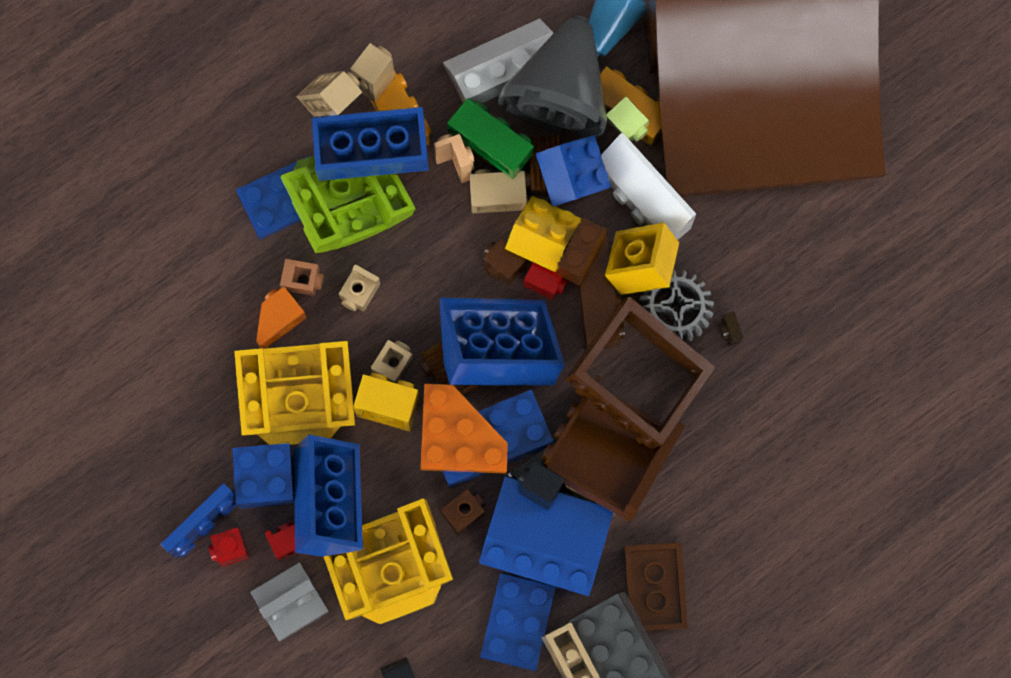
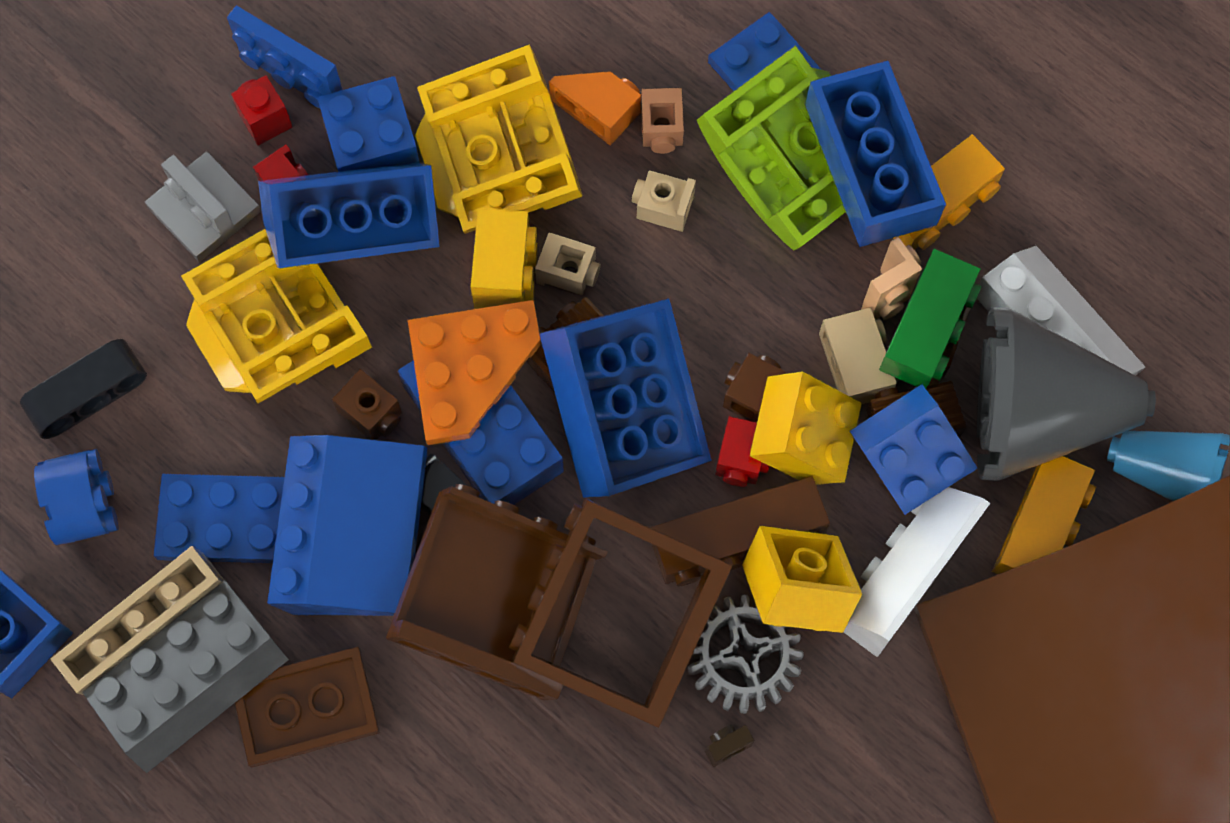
camera: 80 degrees right, 5 degrees down
(330, 93) = (932, 78): tan brick -> none
(374, 71) = (983, 131): tan brick -> none
(540, 485) = (414, 493): black brick -> none
(581, 251) = (788, 483): reddish brown brick -> none
(628, 119) = (1014, 513): yellowish green brick -> none

